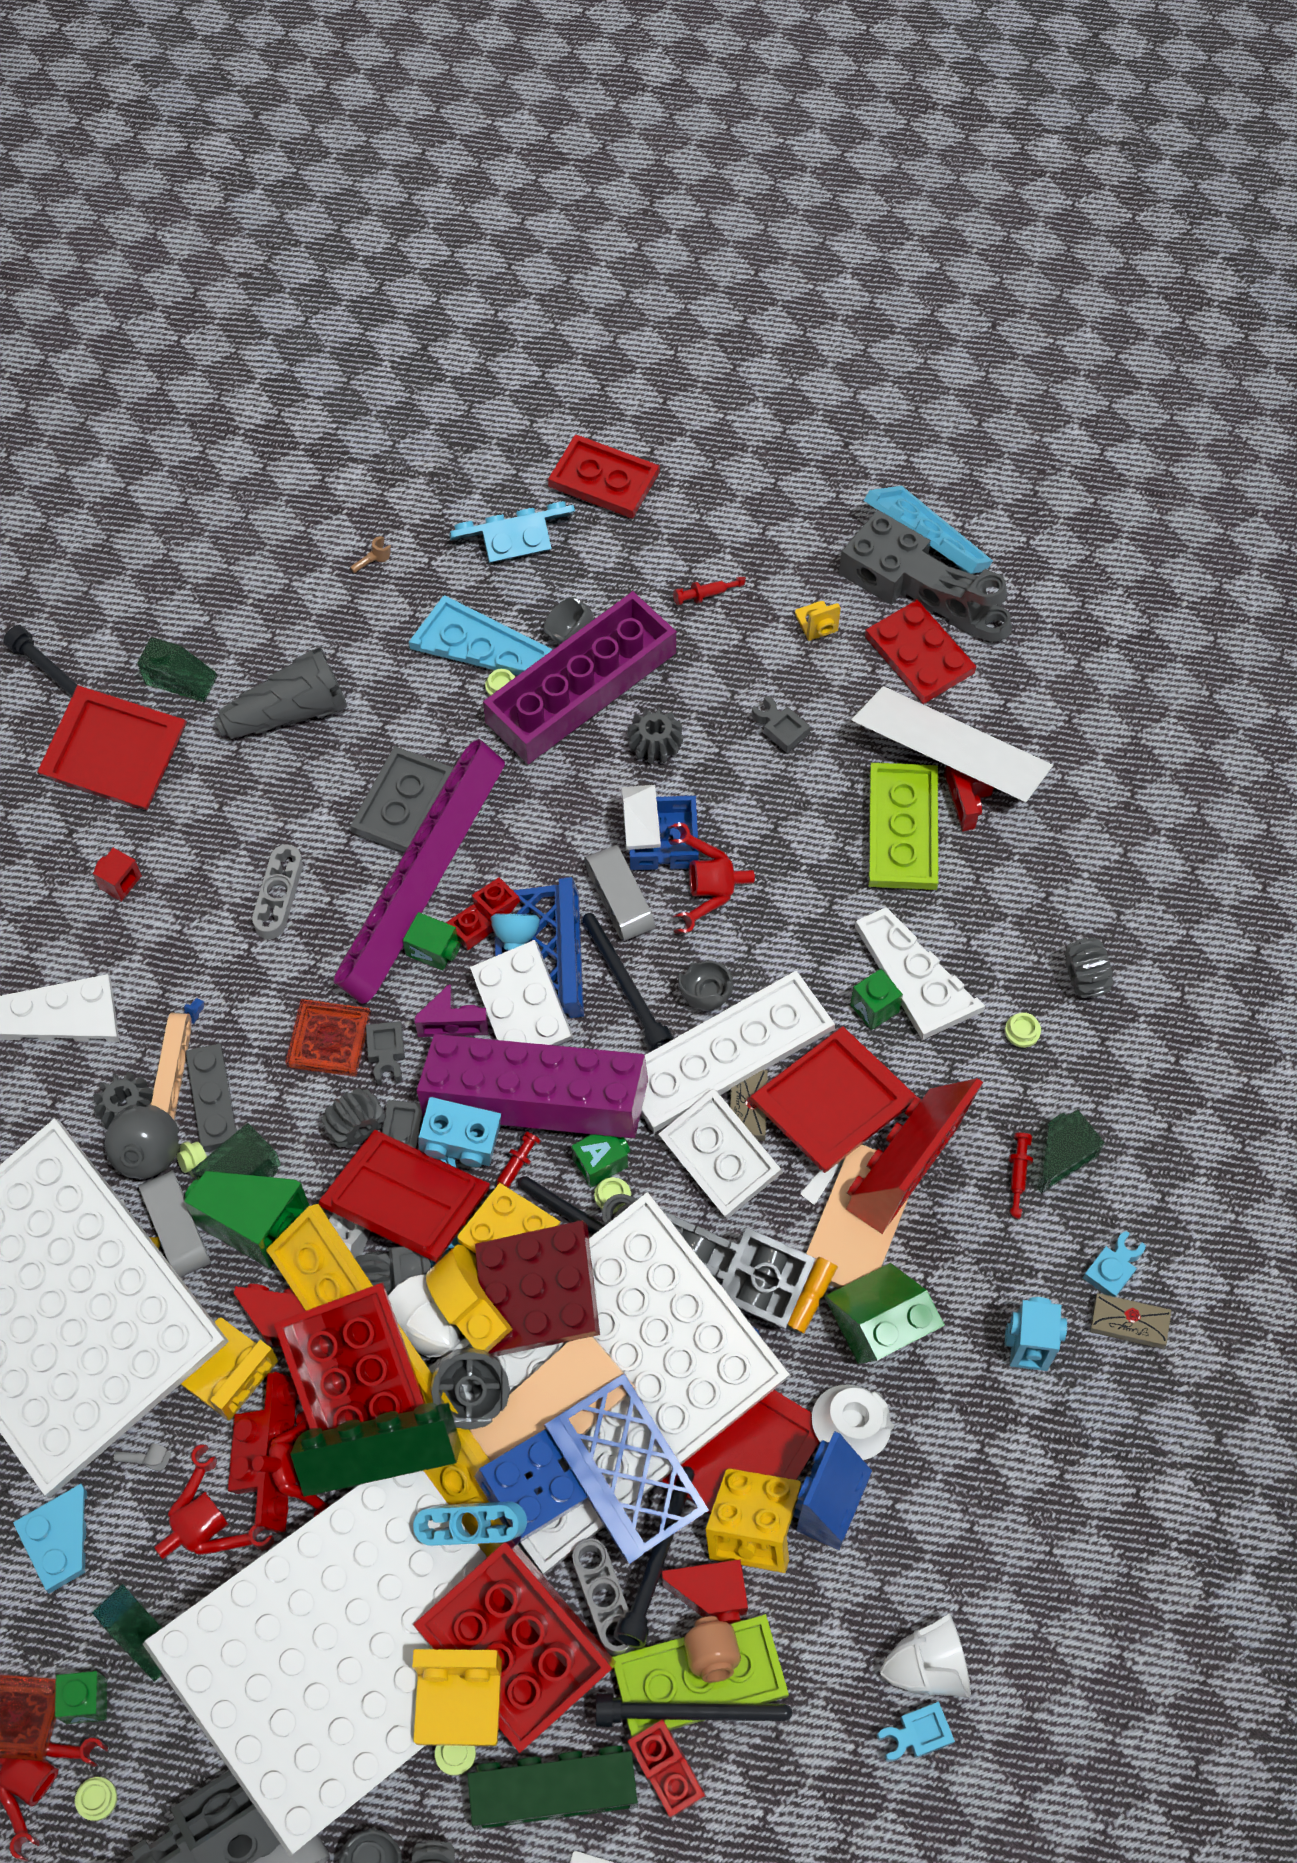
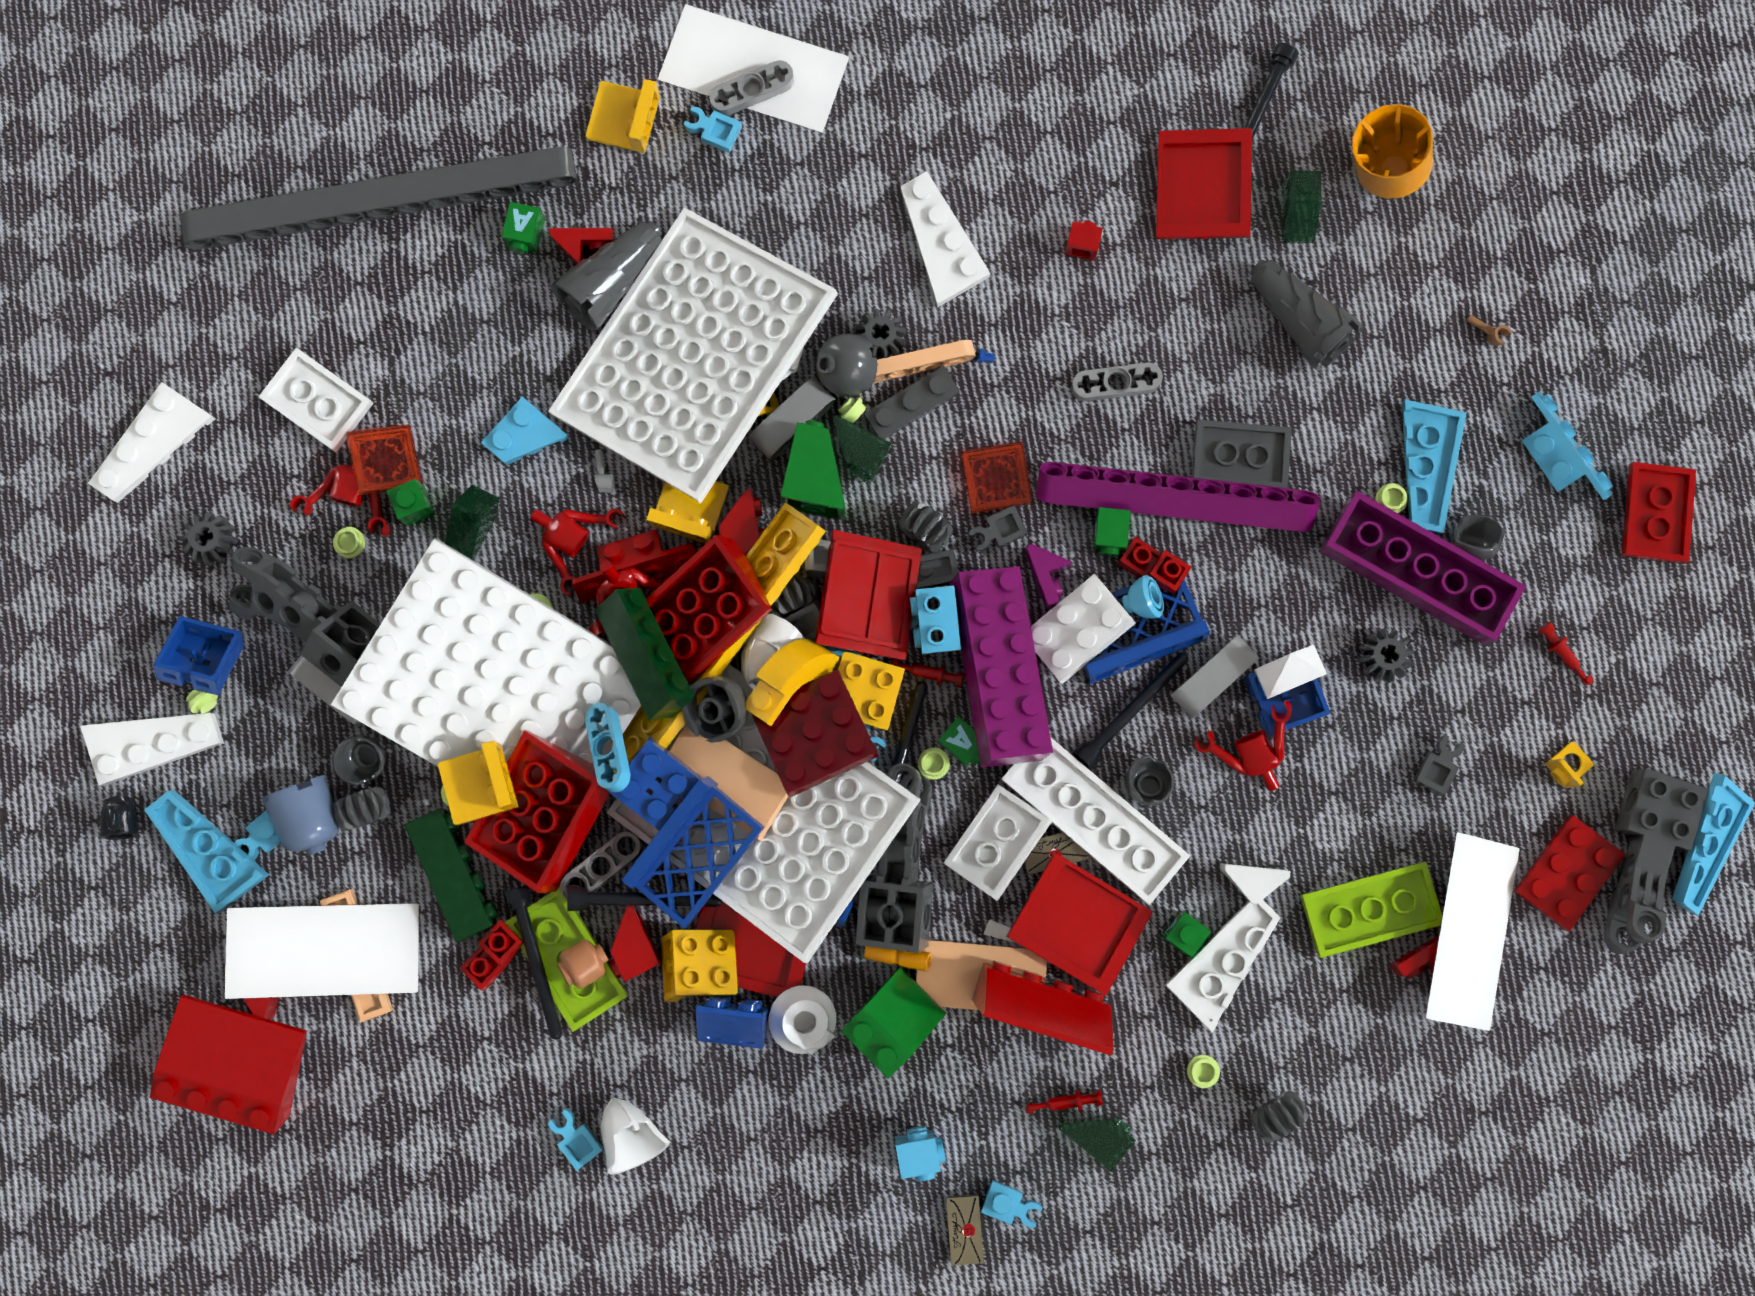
camera: 75 degrees right, 20 degrees up
(162, 569) = (1393, 151): none -> light orange piece
(840, 920) = (1254, 882): none -> white slope

